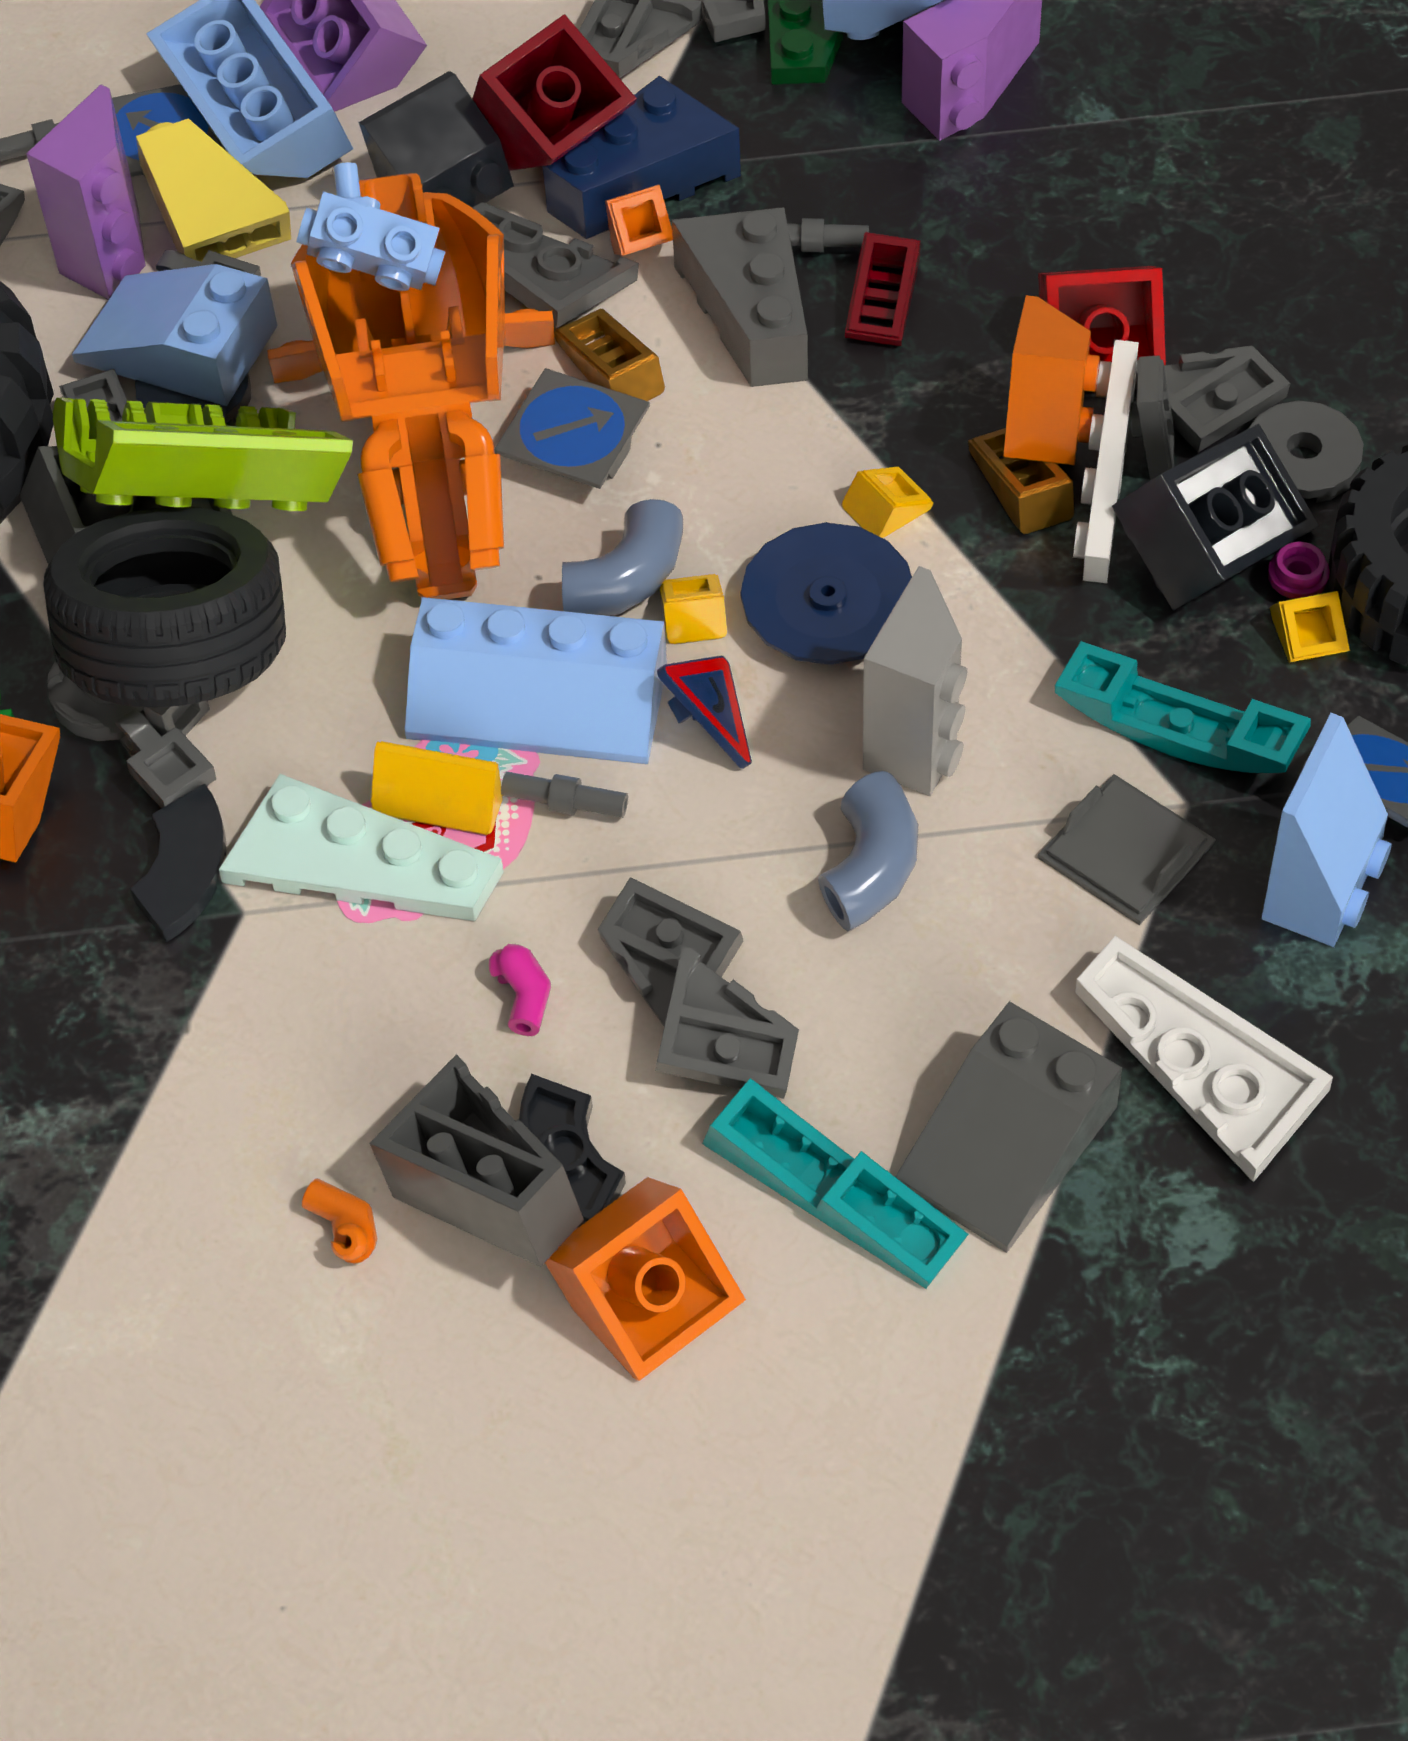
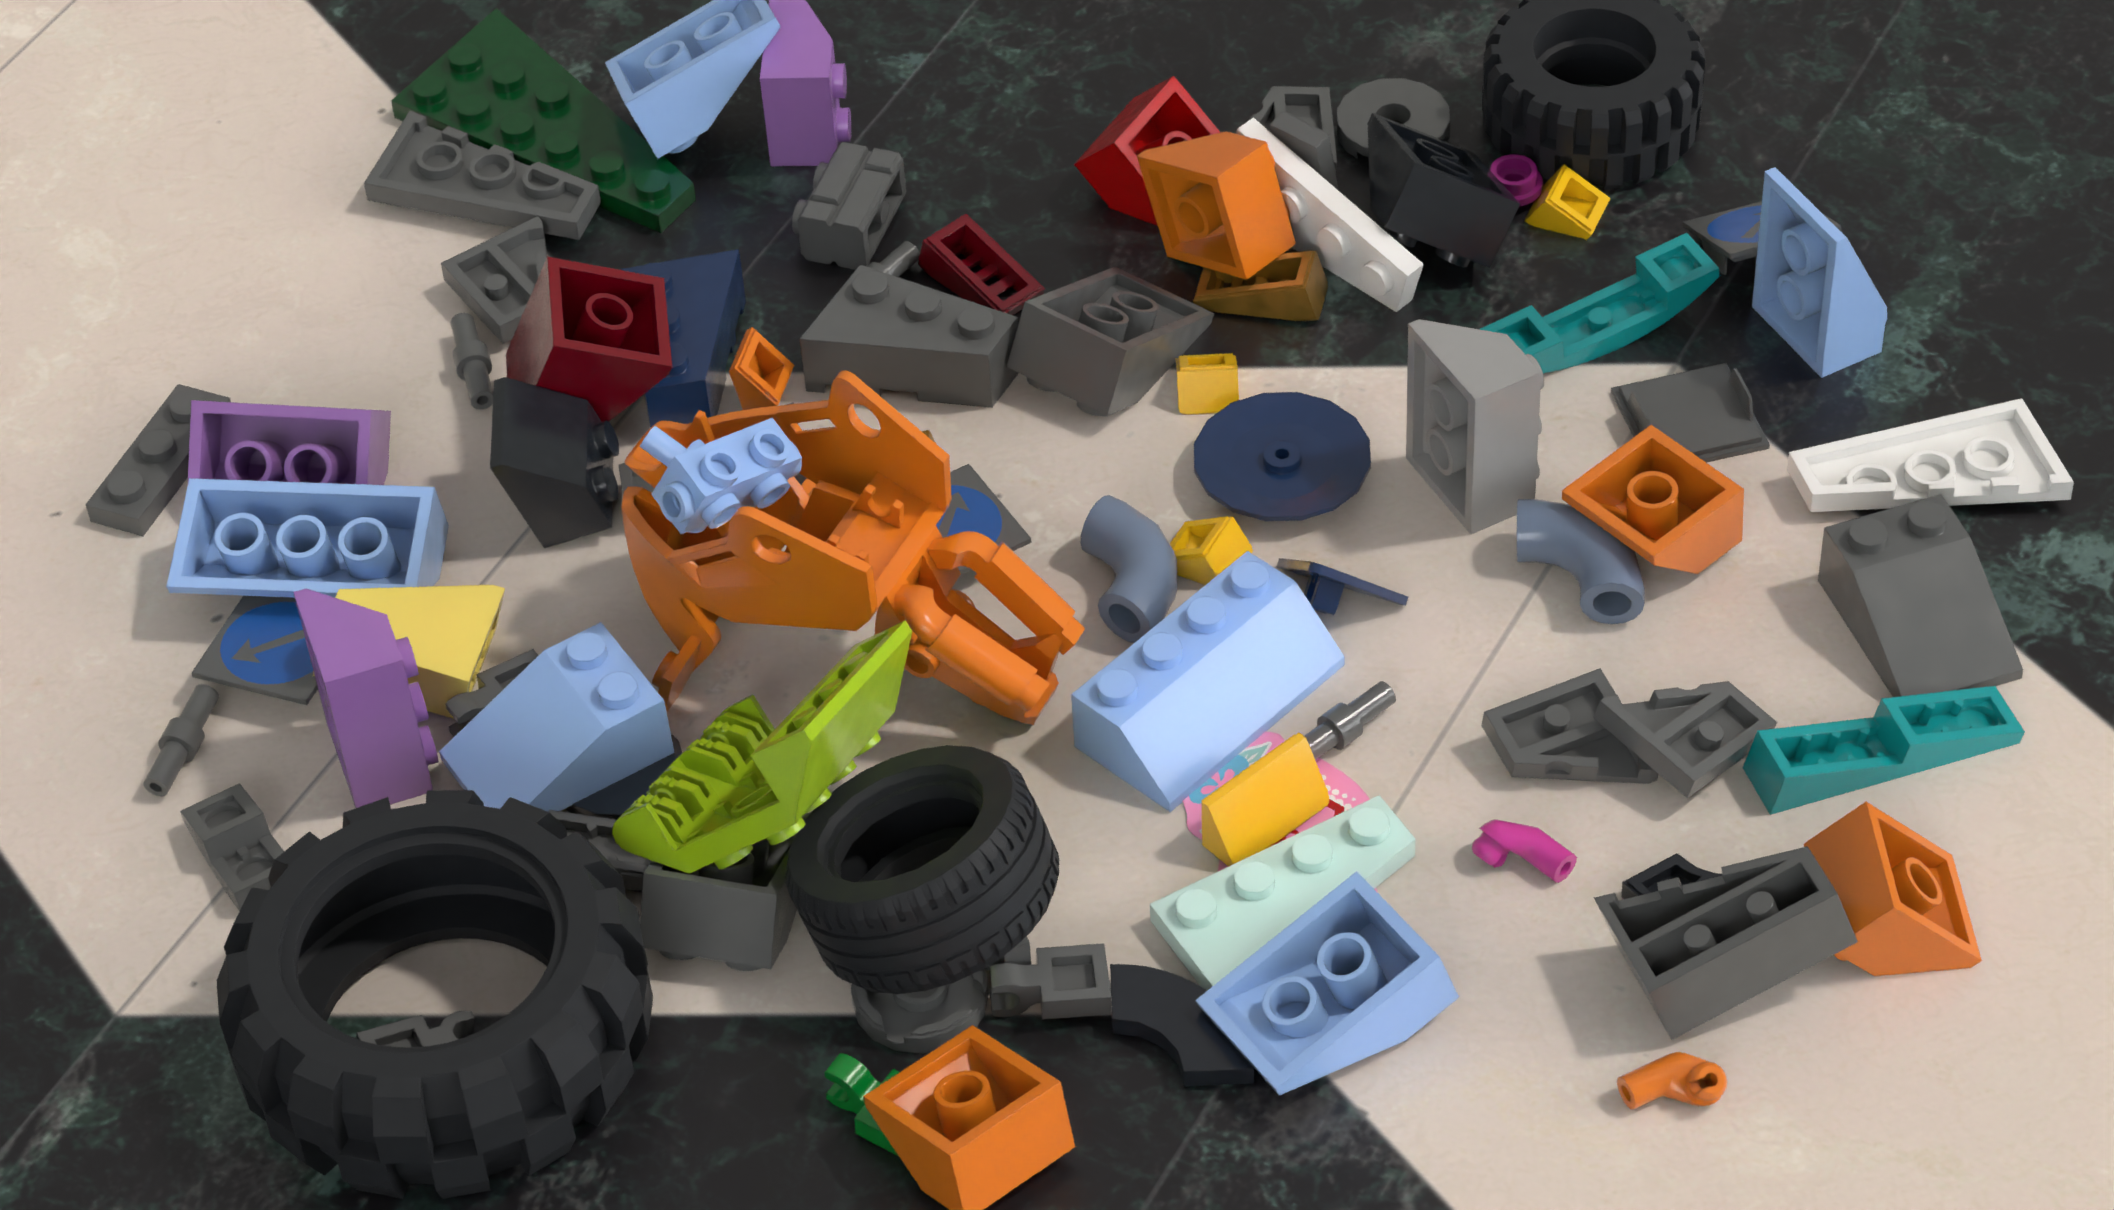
camera: 55 degrees left, 10 degrees down
(262, 935) = (1330, 989): none -> light blue slope
(867, 406) = (1104, 339): none -> dark grey slope
(878, 170) = (850, 205): none -> dark grey brick
(948, 871) = (1662, 502): none -> orange slope

